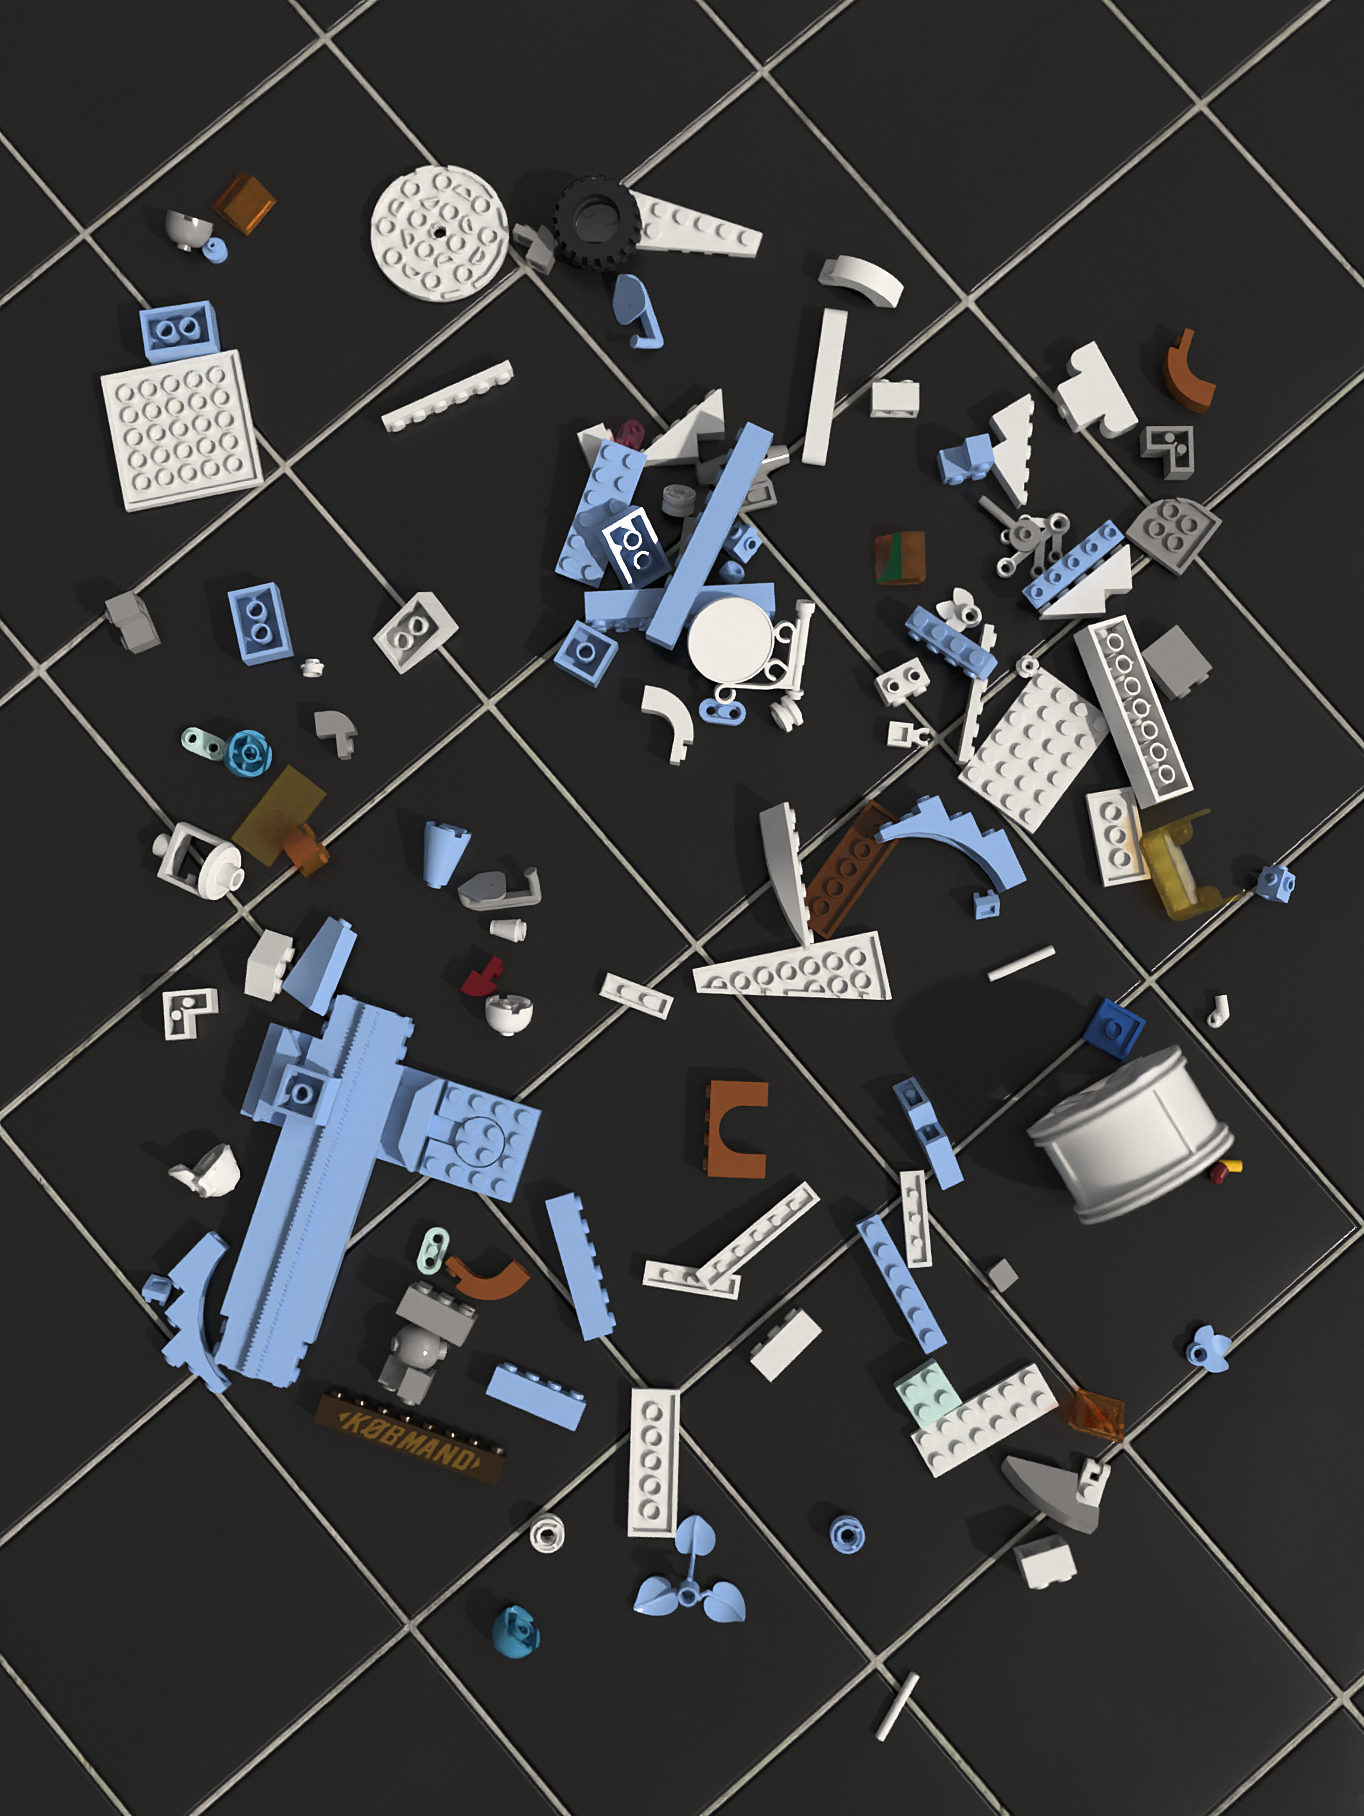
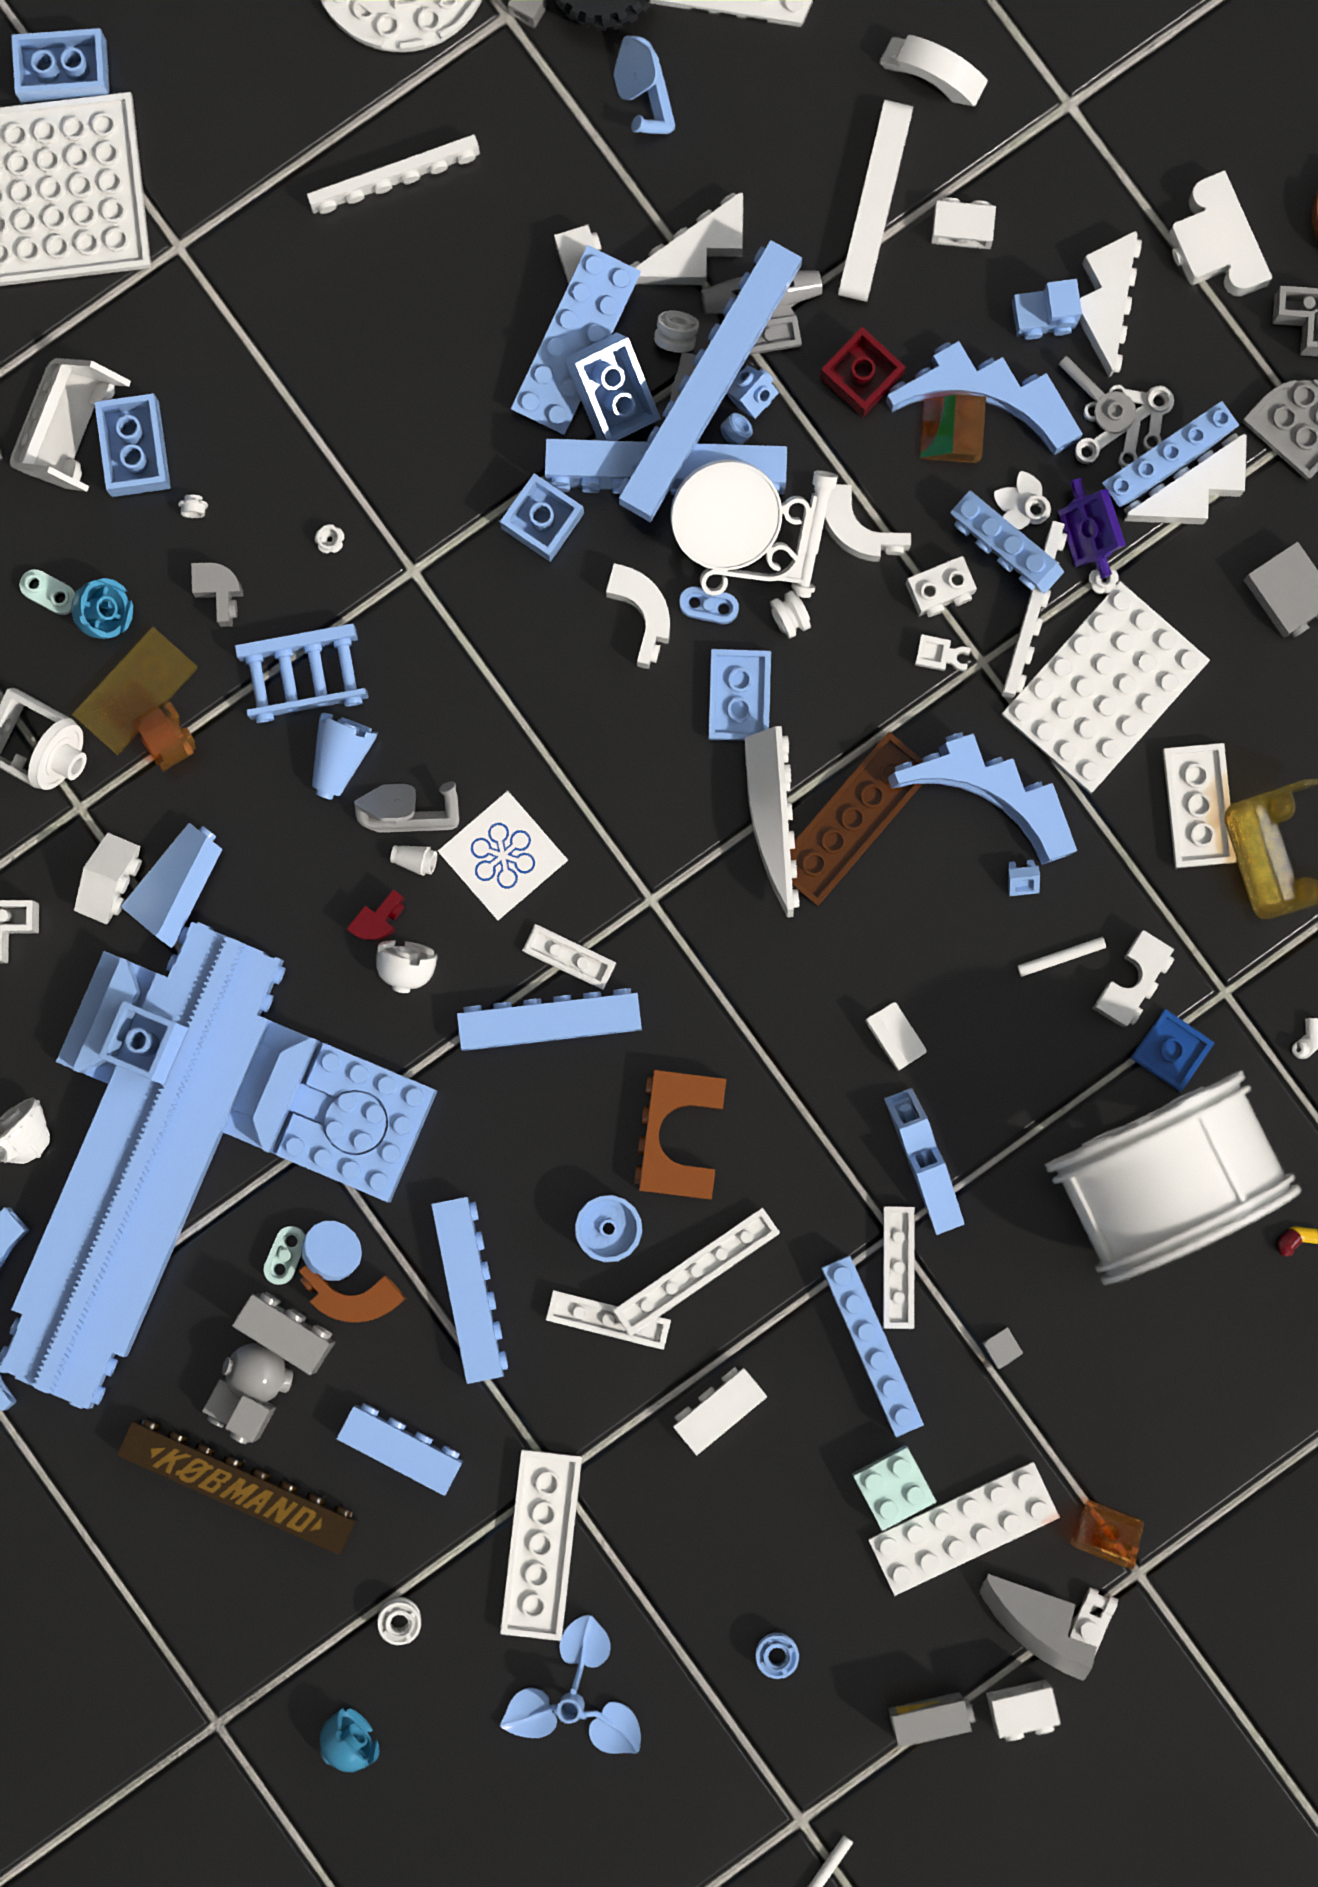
camera: 10 degrees right, 0 degrees up
(202, 609) = (60, 419): none -> white windscreen
(392, 773) = (312, 645): none -> light blue fence
(415, 631) = (328, 470): white slope -> none
(415, 684) = (329, 531): none -> white plate
(469, 1244) = (331, 1250): none -> light blue tile
(577, 921) = (502, 855): none -> white sticker
(625, 1048) = (549, 1021): none -> light blue brick
(631, 435) = (623, 243): clear pink plate -> none
(700, 1211) = (593, 1219): none -> light blue wheel
(751, 779) = (739, 693): none -> light blue plate
(826, 520) = (862, 372): none -> dark red brick
(831, 969) = (817, 943): white wing -> none
(832, 650) = (853, 536): none -> white arch
(897, 1037) = (896, 1036): none -> white panel
(961, 534) = (1034, 403): none -> light blue arch
(973, 1575) = (931, 1719): none -> light grey brick
(1015, 627) = (1091, 528): none -> dark purple plate
(1090, 959) = (1150, 959): none -> white arch
(1133, 711) = (1231, 648): white brick -> none
(1211, 1348) = (1260, 1464): light blue plate -> none

